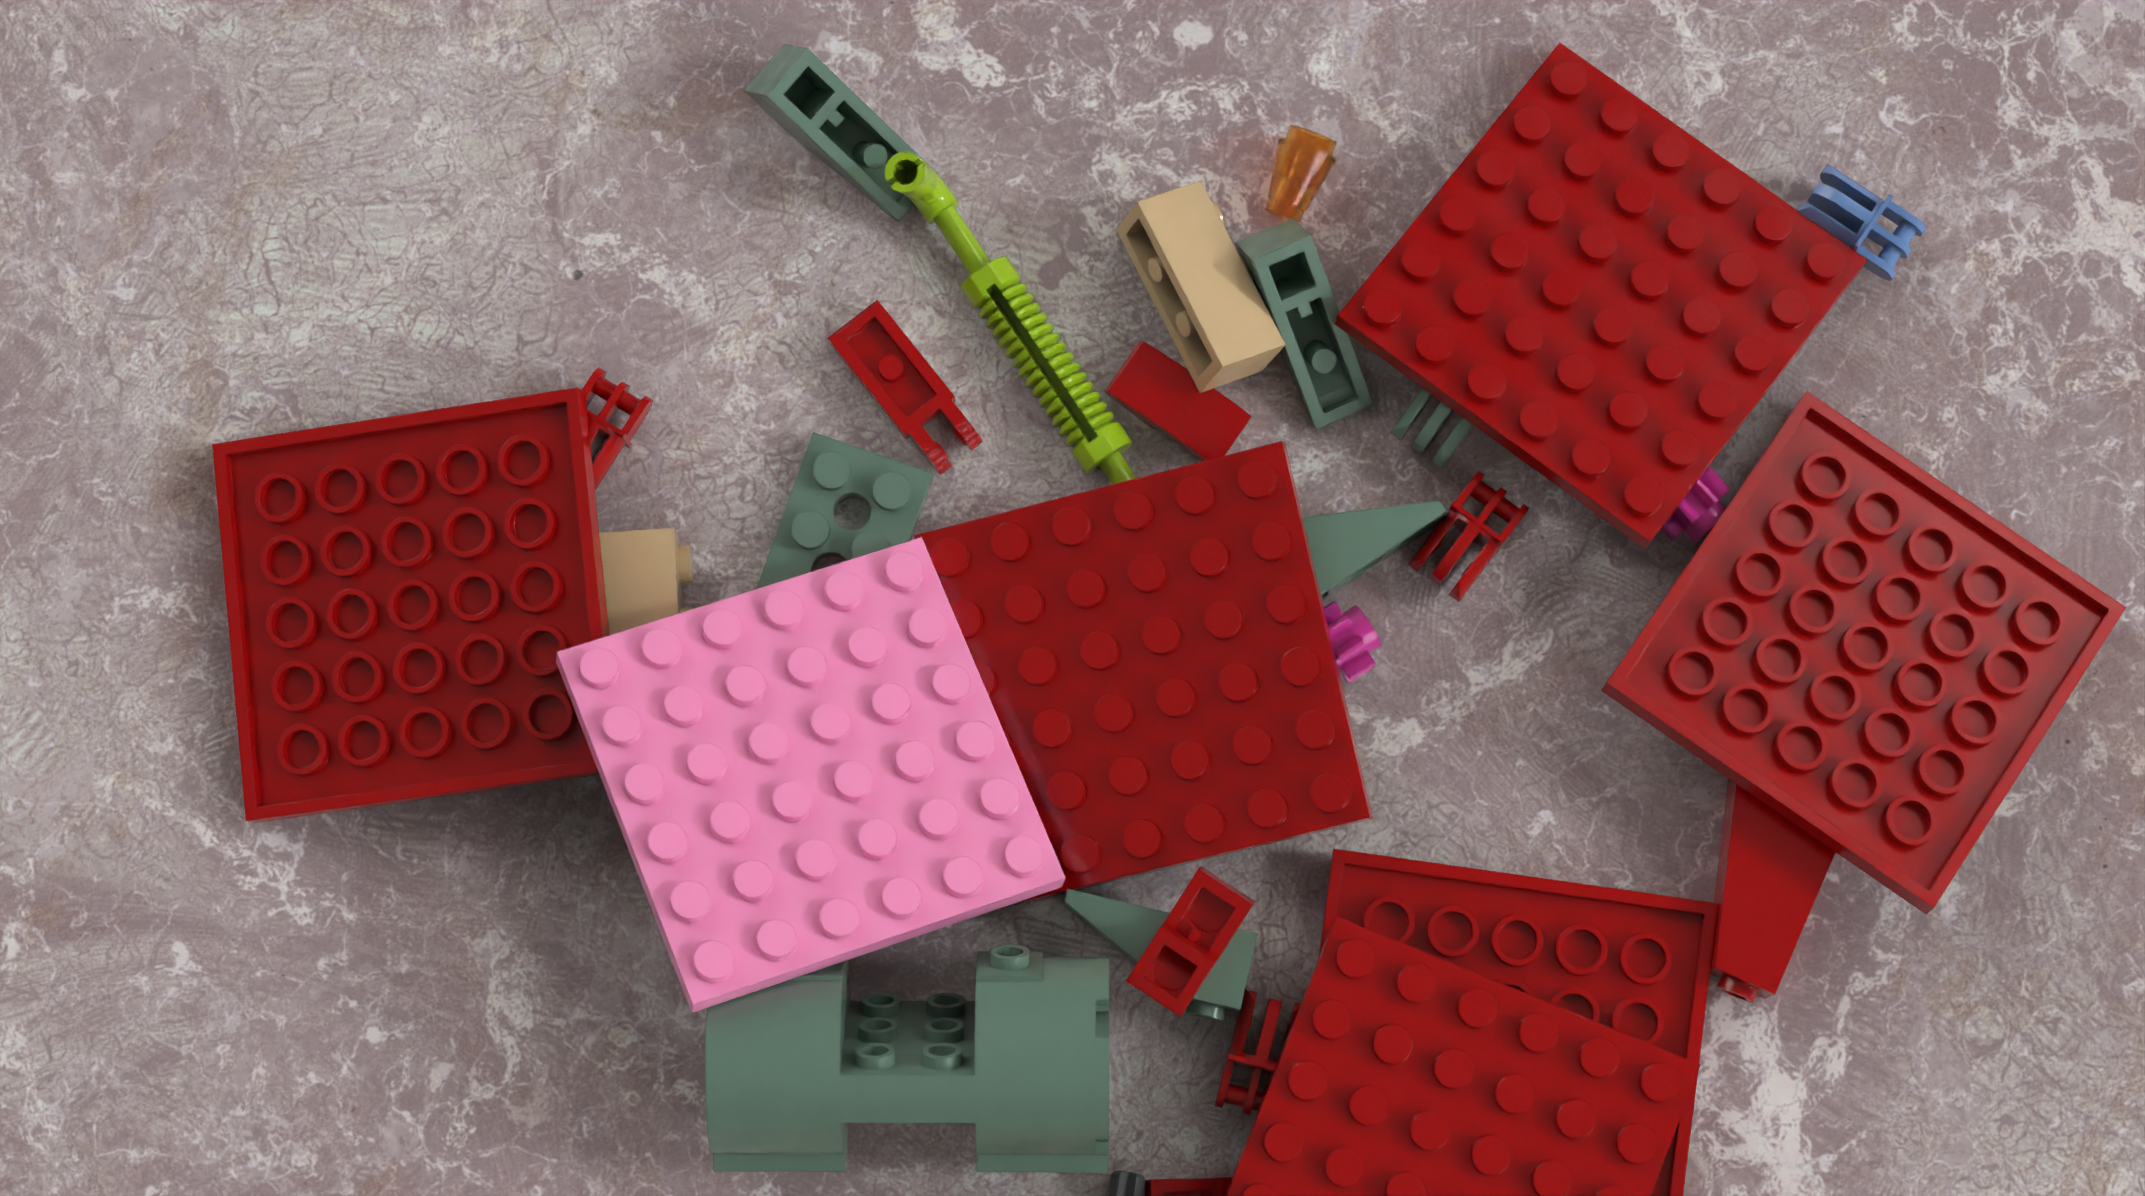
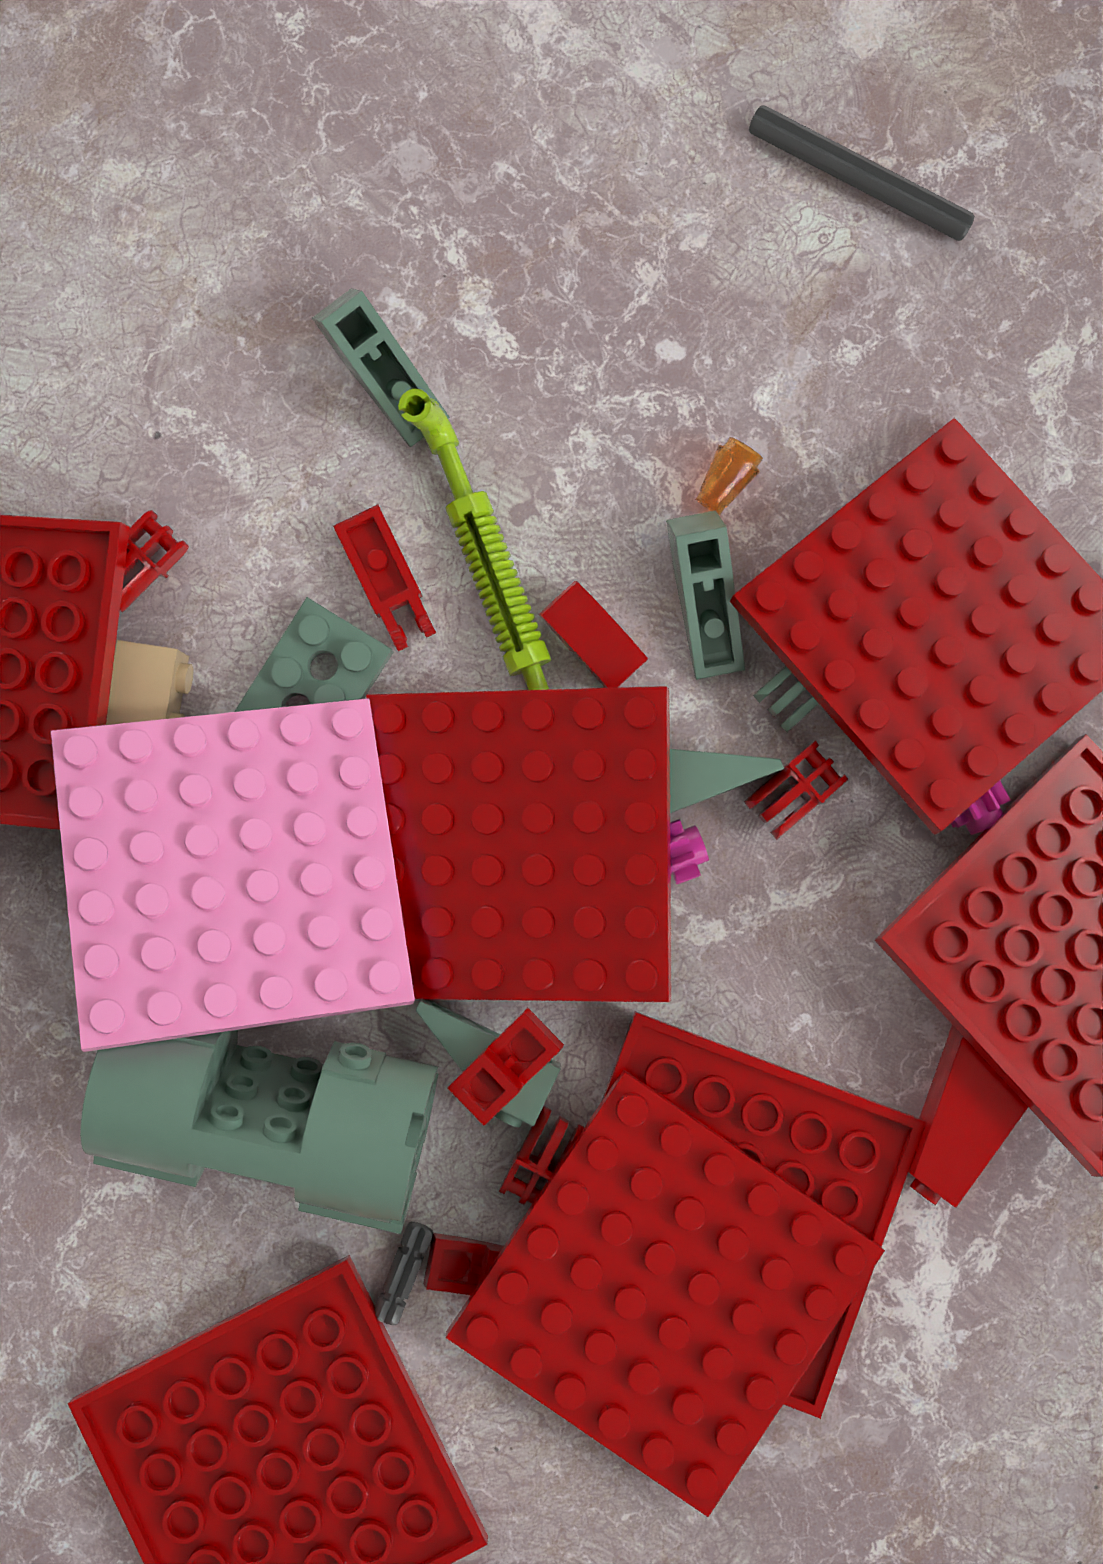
camera: 15 degrees right, 5 degrees up
(1200, 286) = (631, 547): tan brick -> none

